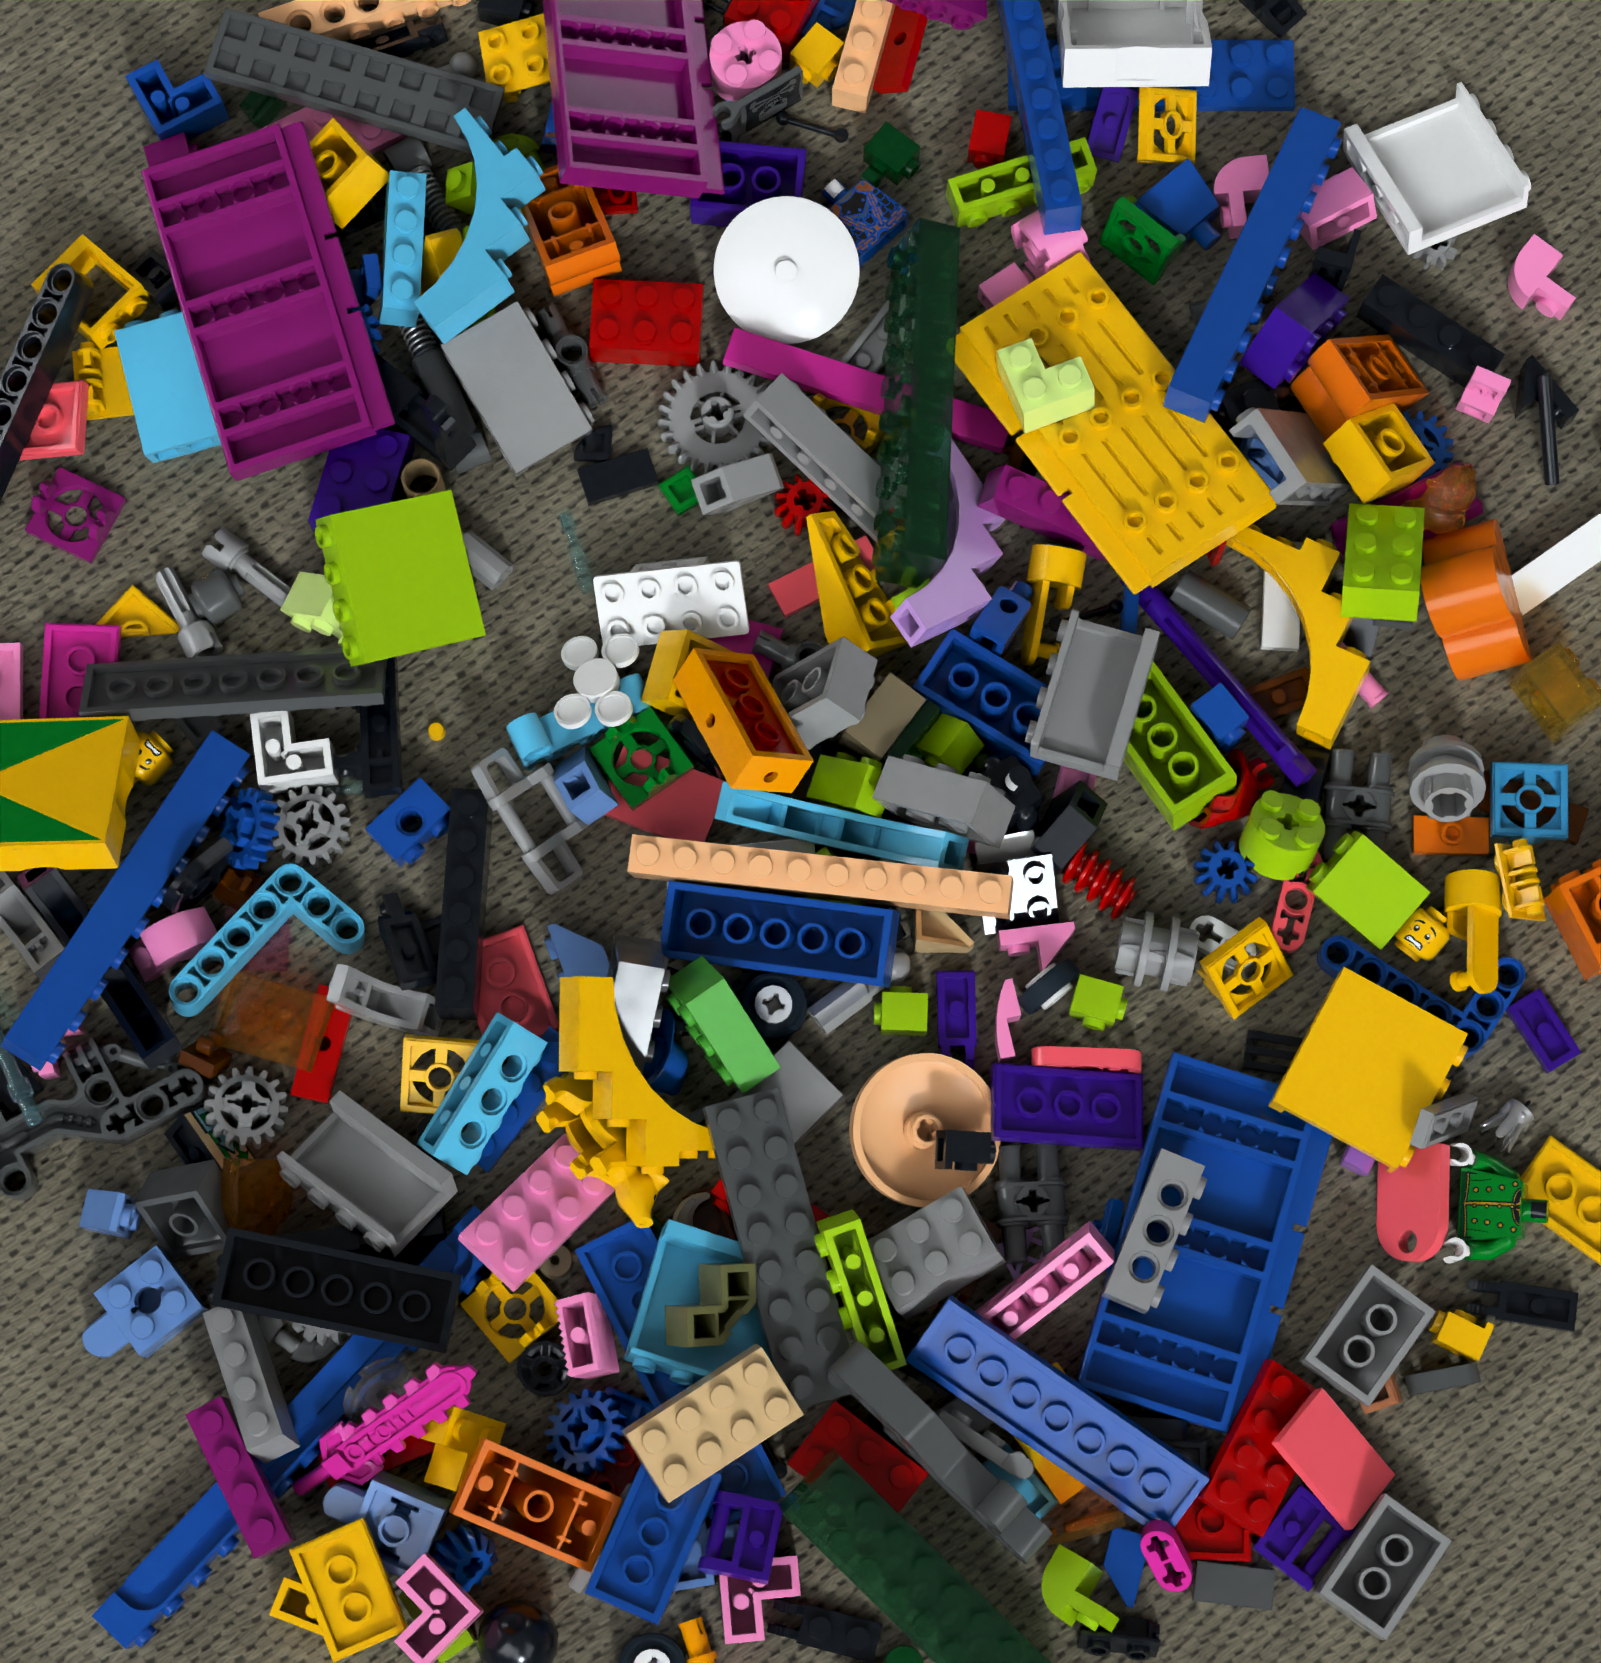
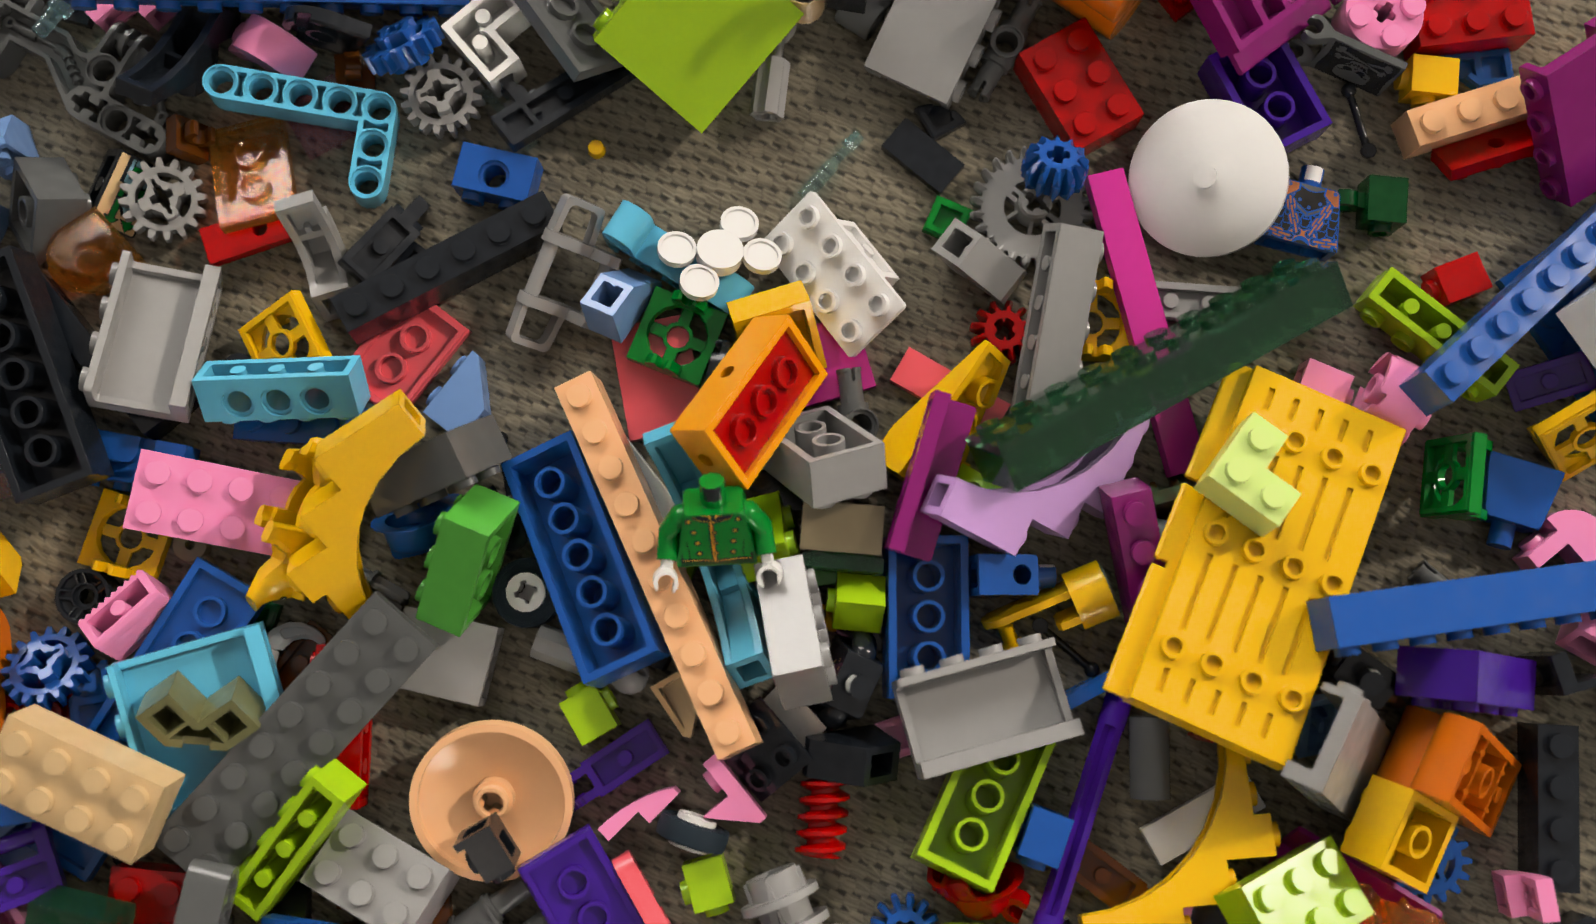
camera: 60 degrees right, 5 degrees up
(702, 379) = (1054, 168): none -> blue gear
(827, 805) = (715, 529): none -> green torso
(871, 610) = (936, 451): none -> magenta panel

